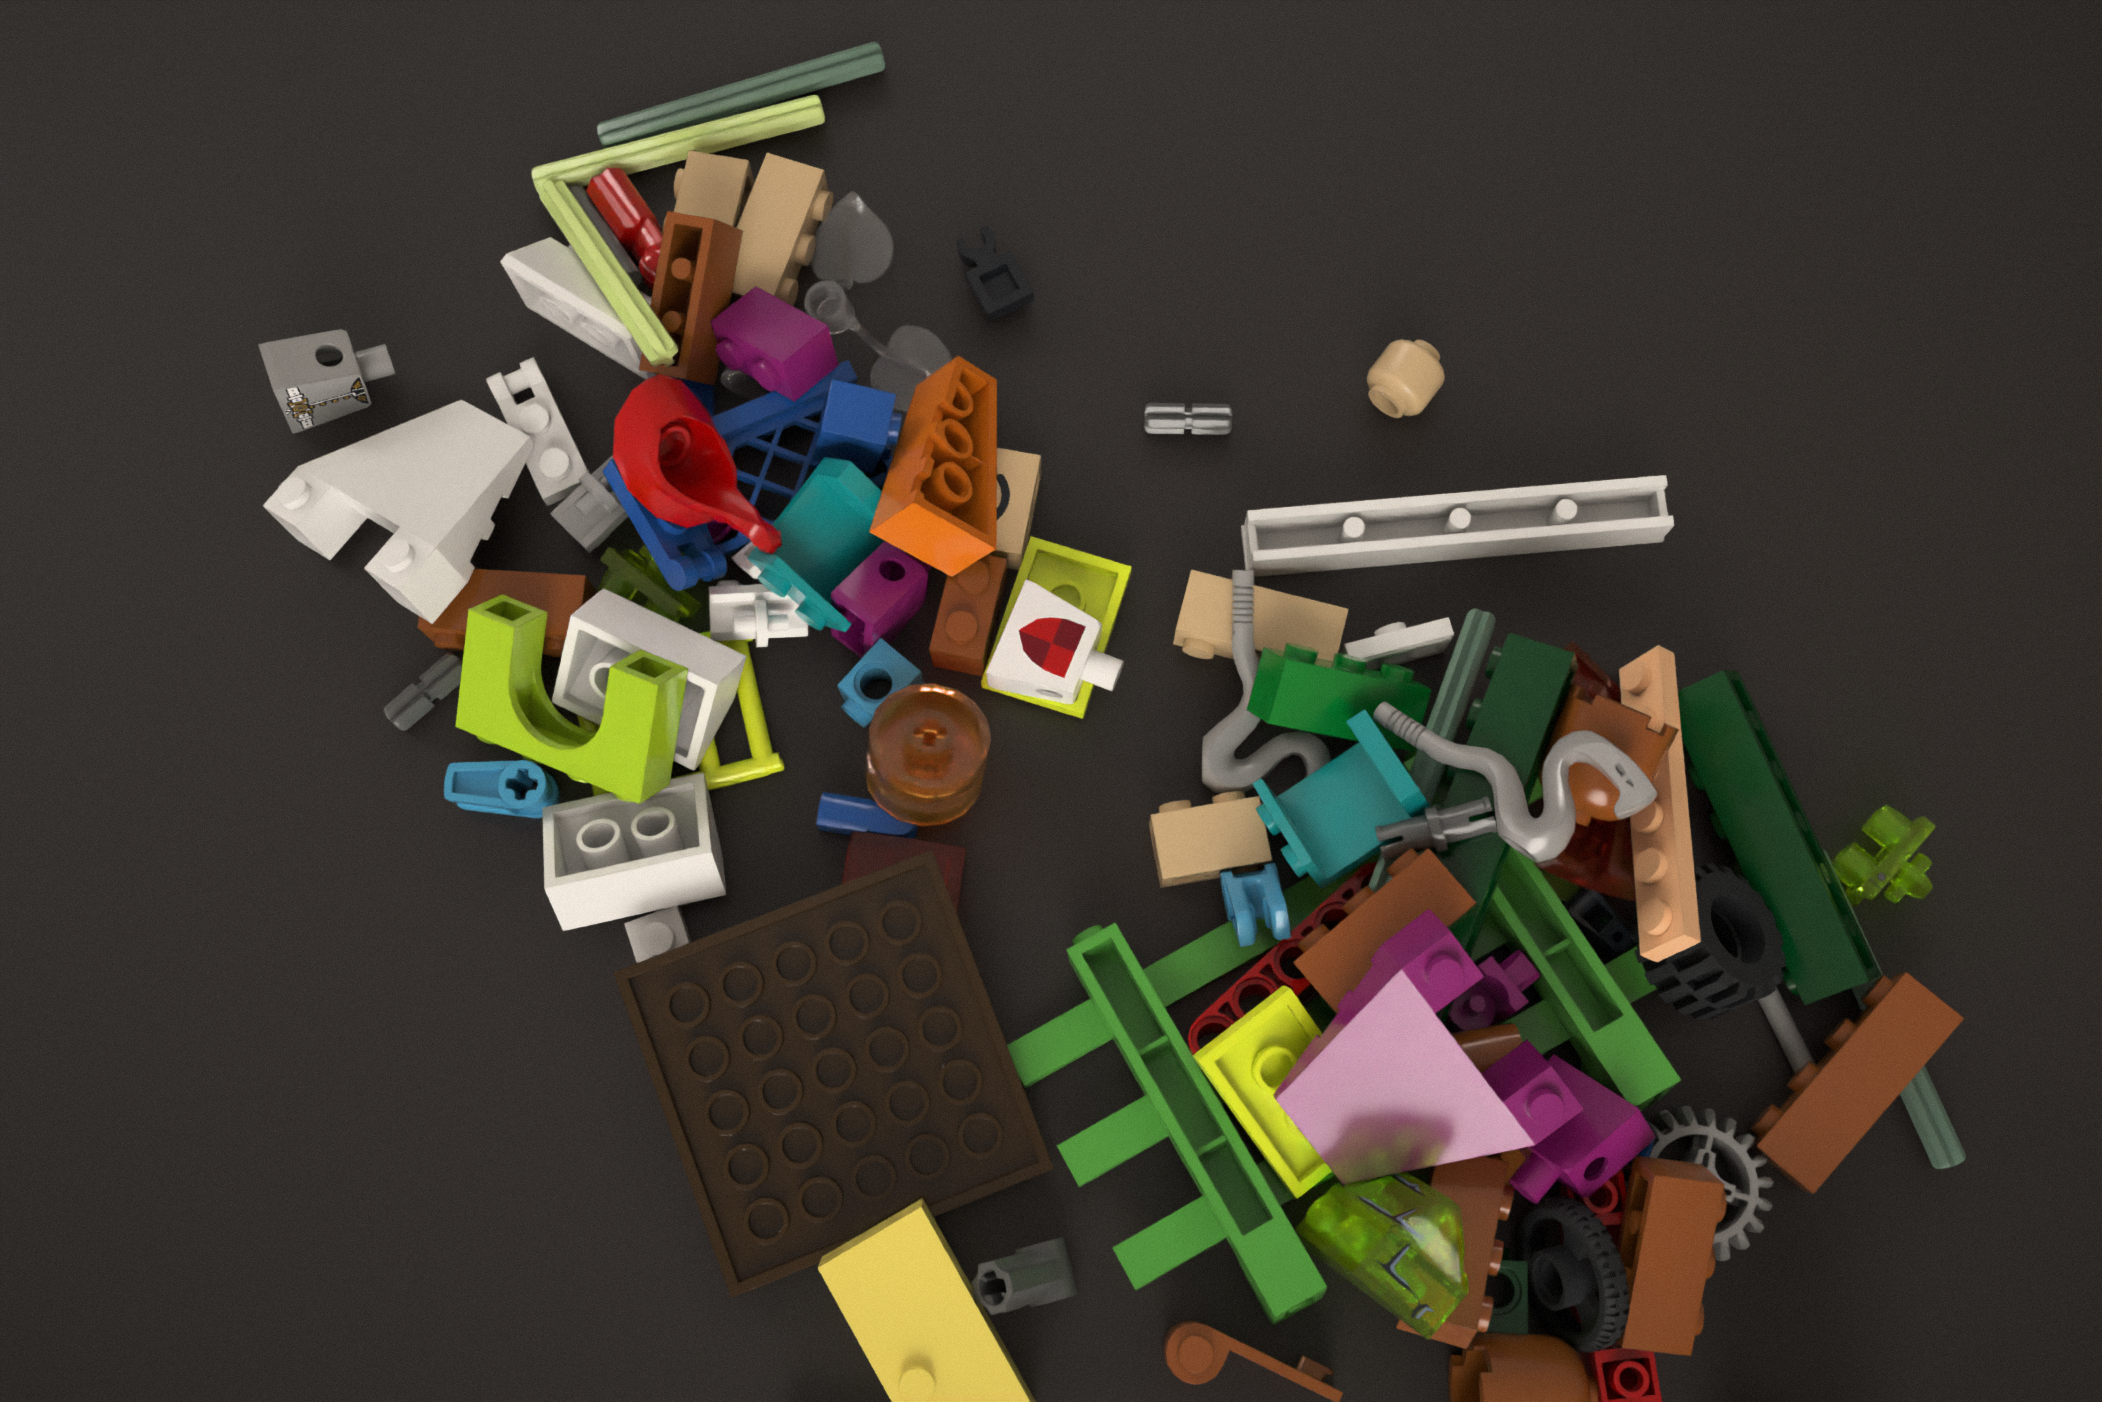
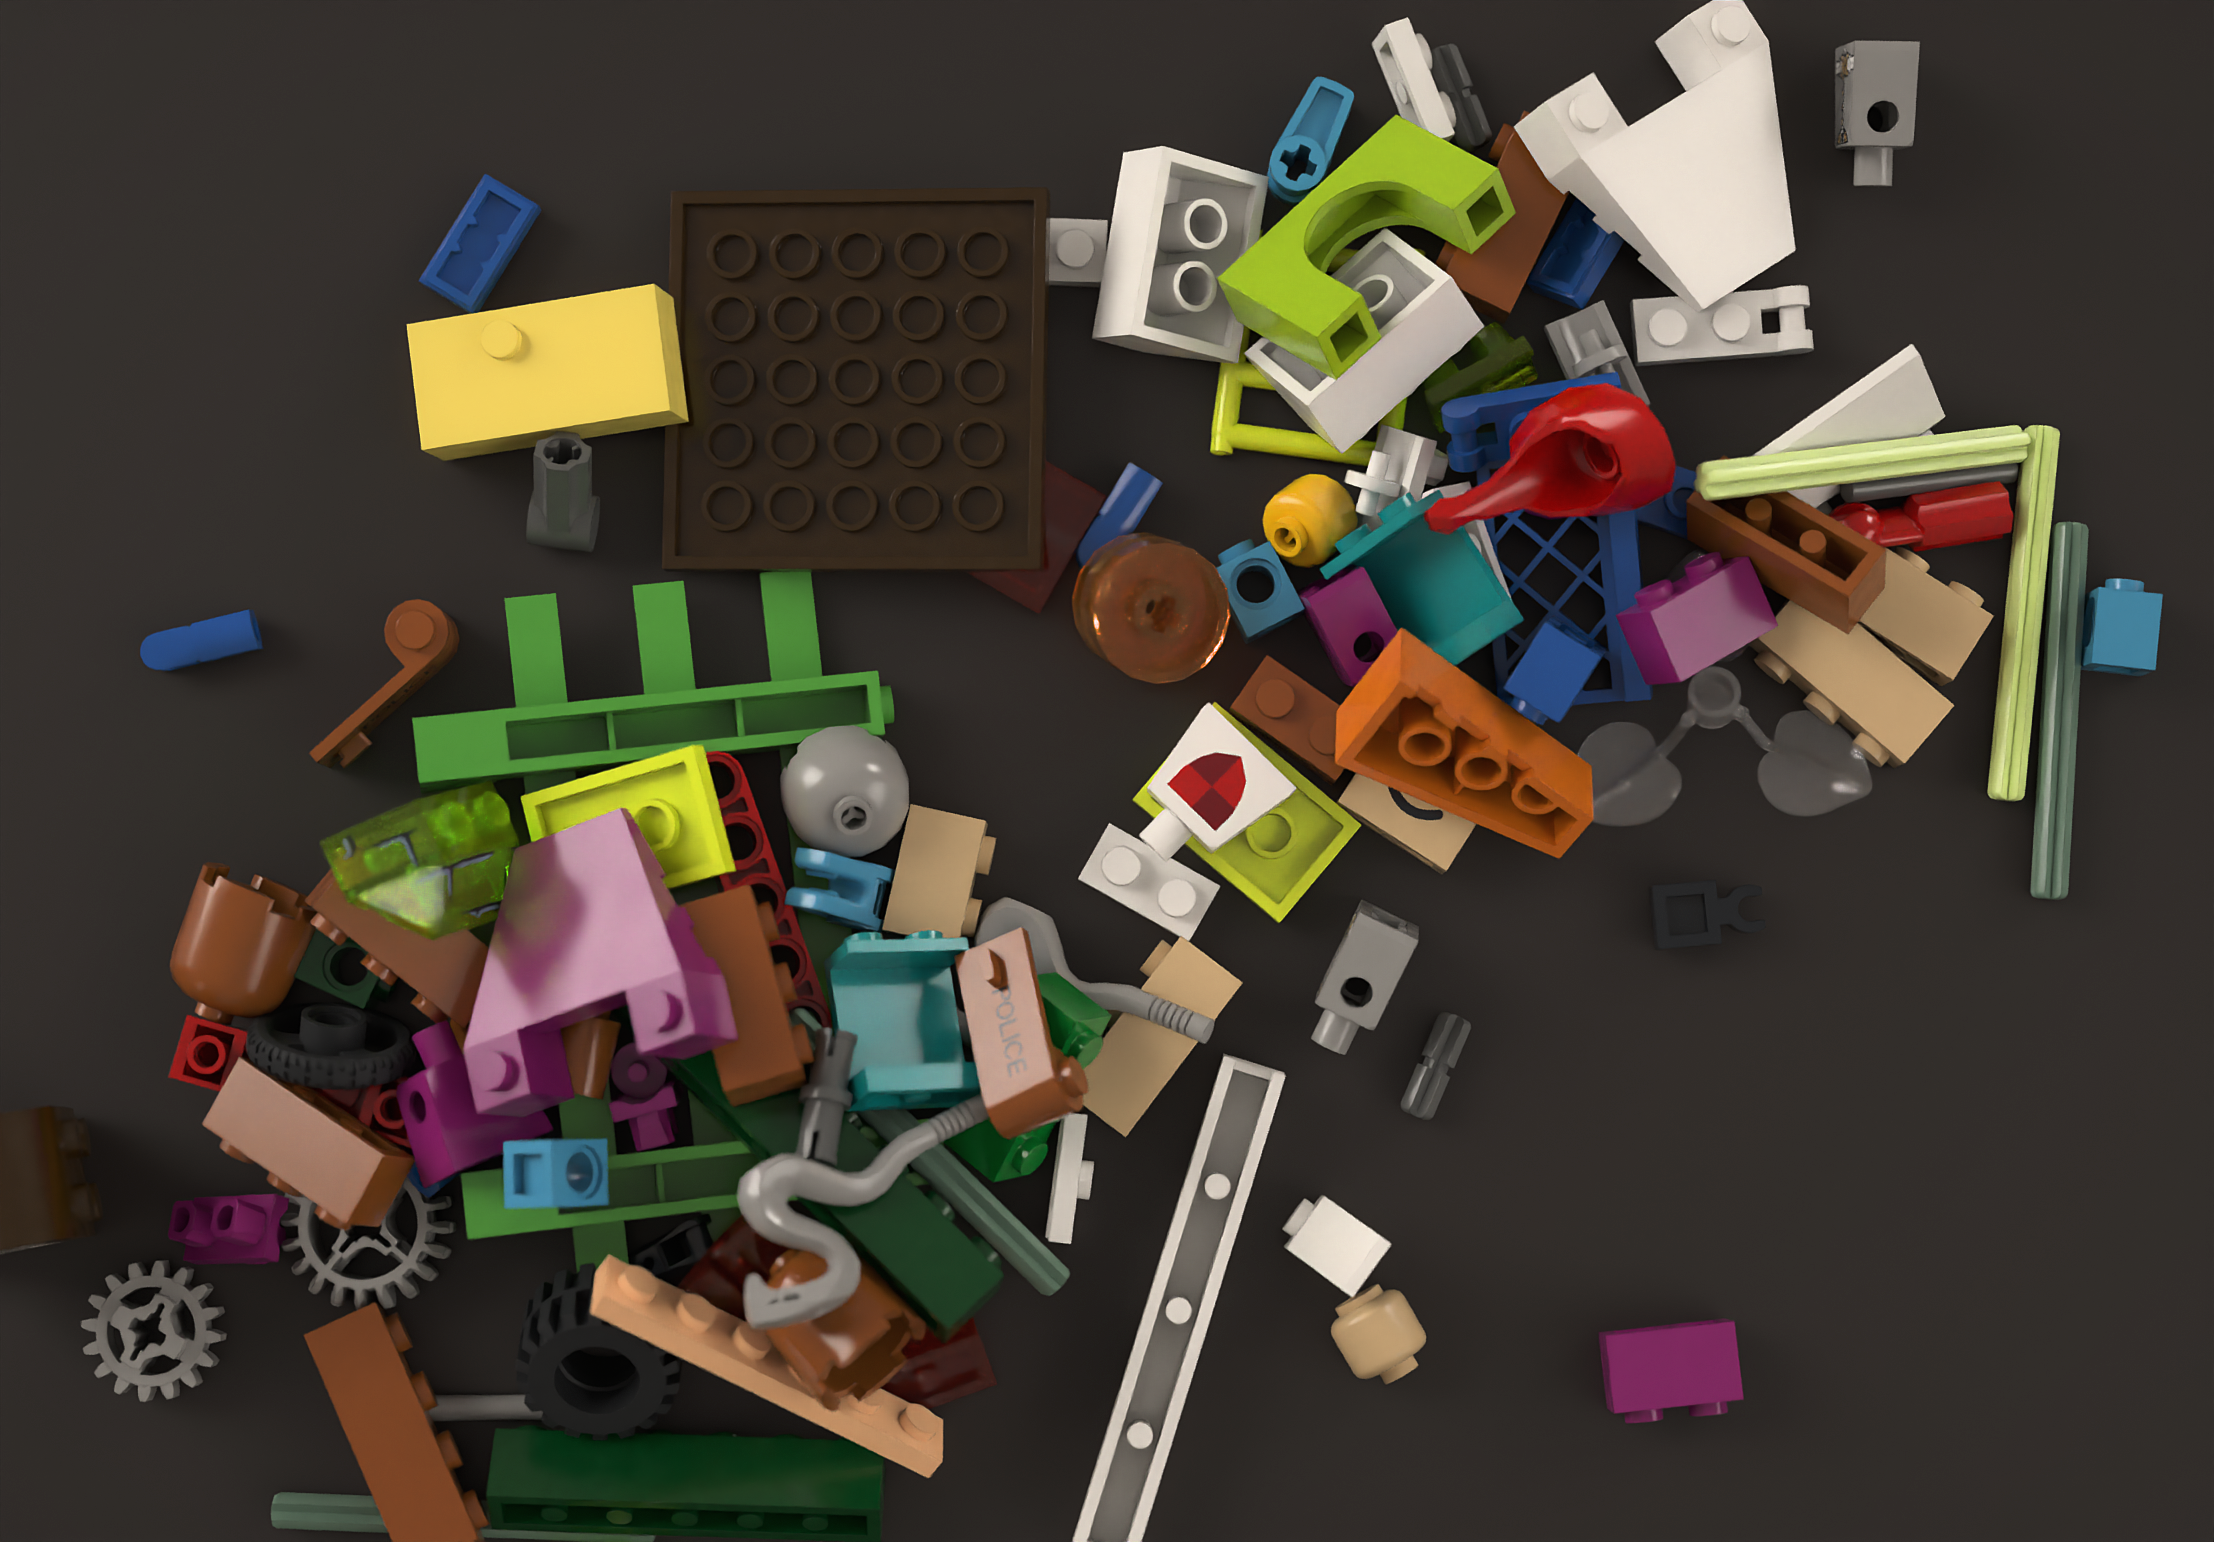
camera: 110 degrees right, 10 degrees up
(423, 730) = (1407, 68): none -> white plate
(521, 548) = (1575, 258): none -> blue plate
(663, 70) = (2121, 628): none -> dark azure brick
(808, 664) = (1309, 519): none -> yellow head
(1142, 487) = (1374, 949): none -> light grey torso
(1143, 681) = (1147, 884): none -> white plate
(1176, 933) = (845, 791): none -> light grey cylinder
(1333, 172) = (1671, 1368): none -> magenta brick
(1337, 692) = (1018, 1068): none -> door
(1357, 424) = (1334, 1243): none -> white slope
(1600, 1022) = (555, 1173): none -> dark azure brick
(1755, 1298) = (230, 1228): none -> magenta hips
(1866, 1355) = (129, 1318): none -> light grey gear

